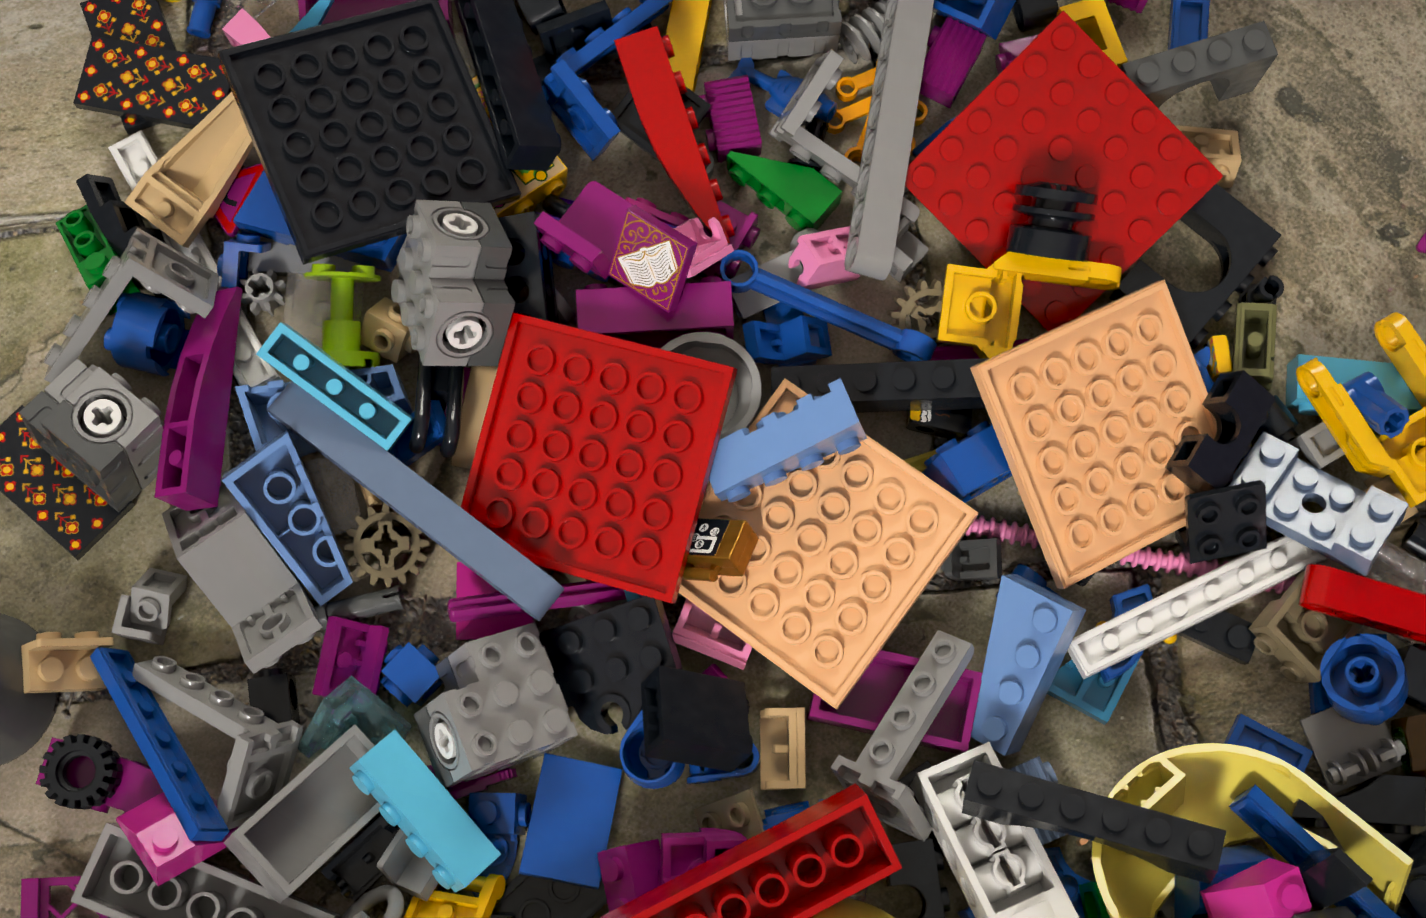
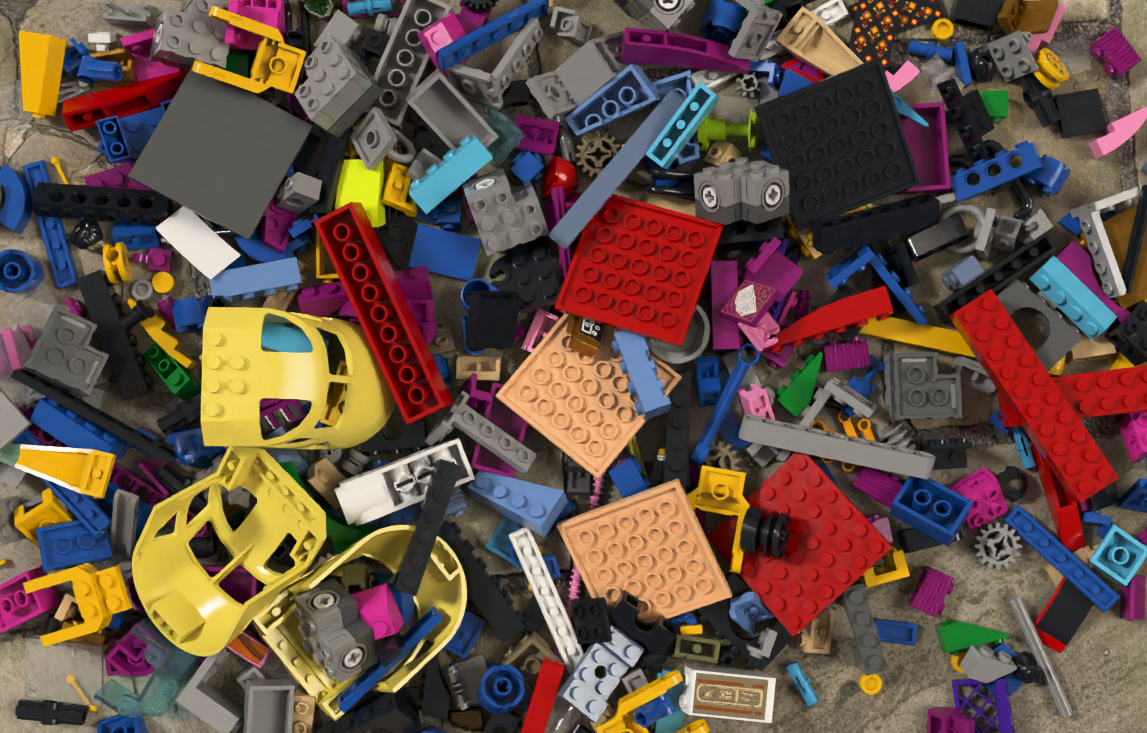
camera: 90 degrees right, 10 degrees up
(424, 614) = (560, 174): none -> red cylinder
(655, 192) = (802, 305): none -> magenta axle
(841, 741) = (478, 399): none -> magenta panel
(874, 299) = (730, 430): none -> blue tile
(1178, 259) = (748, 611): none -> medium blue bracket
(1185, 718) = (482, 587): none -> black brick
(1236, 223) = (766, 640): none -> light grey bracket
(1281, 69) = (870, 684): none -> yellow tile
(1290, 173) = (802, 683): none -> dark azure pin
(1328, 285) = (728, 693): none -> slope

